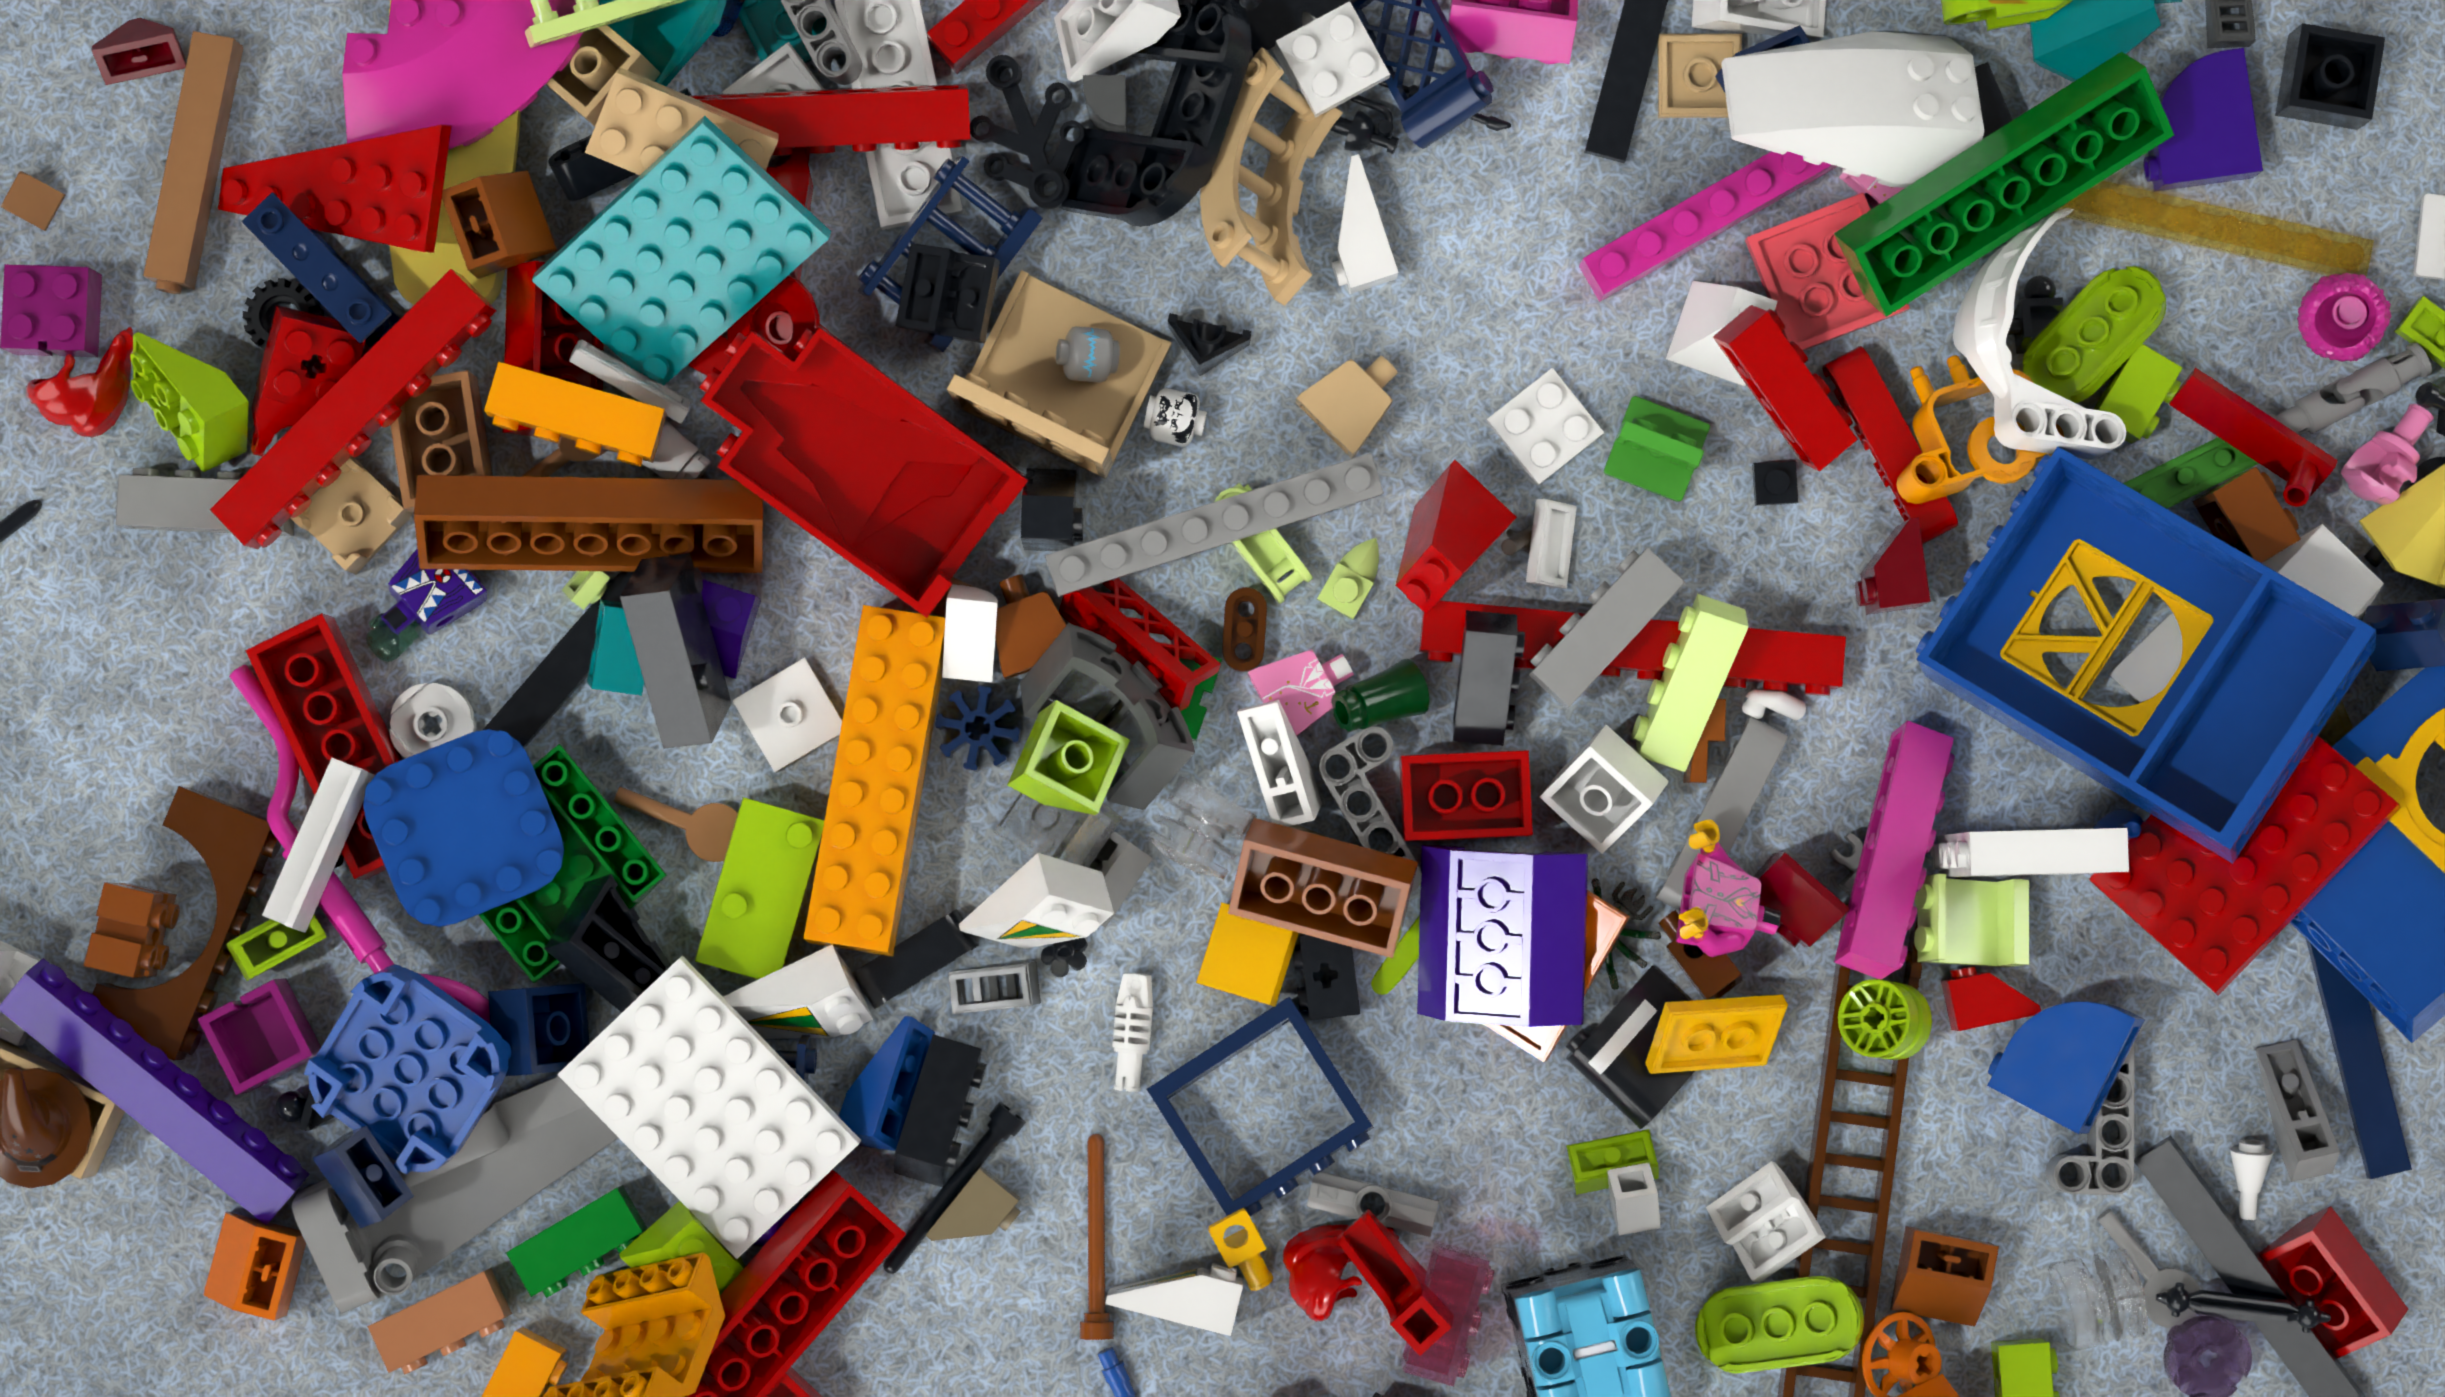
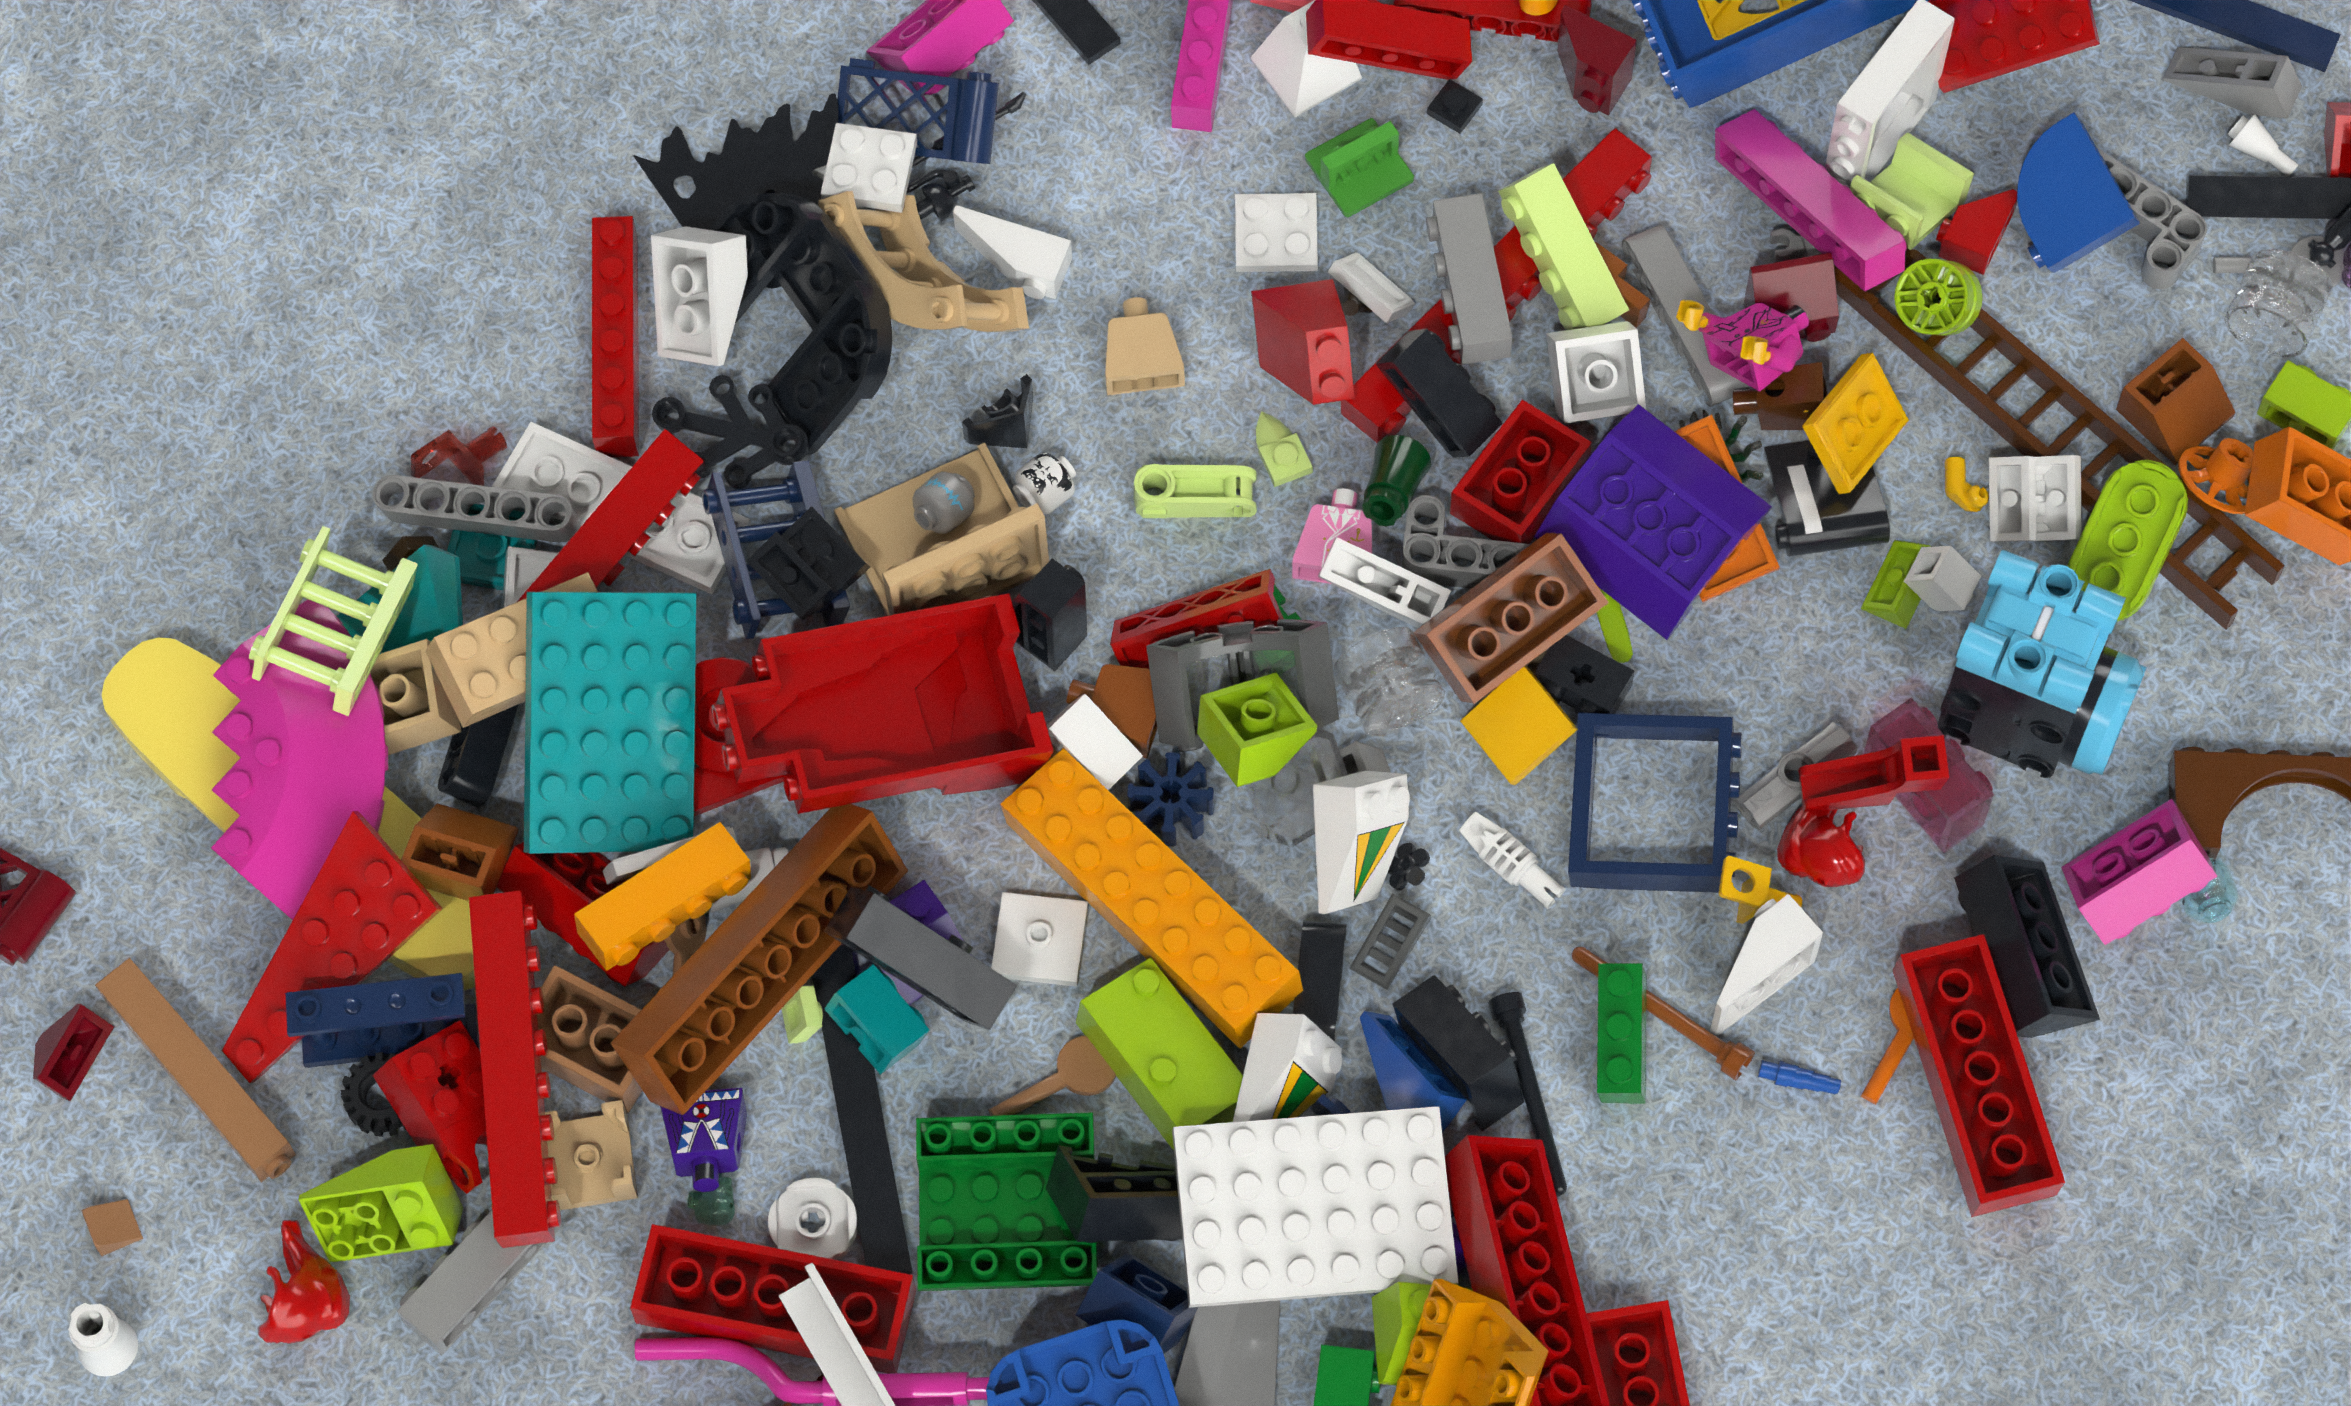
camera: 50 degrees left, 20 degrees down
(51, 307) = (209, 1267): magenta piece -> none
(463, 827) = (924, 1235): blue plate -> none
(977, 1209) = (1565, 1078): dark tan slope -> none
(1043, 1229) = (1621, 1033): none -> green brick
(1106, 101) = (760, 349): dark grey brick -> none
(1214, 525) = (1155, 498): light grey brick -> none
(1244, 629) = (1258, 550): reddish brown plate -> none
(1732, 1152) = (1961, 492): none -> yellow arm
(1777, 701) = (1626, 213): white arm -> none

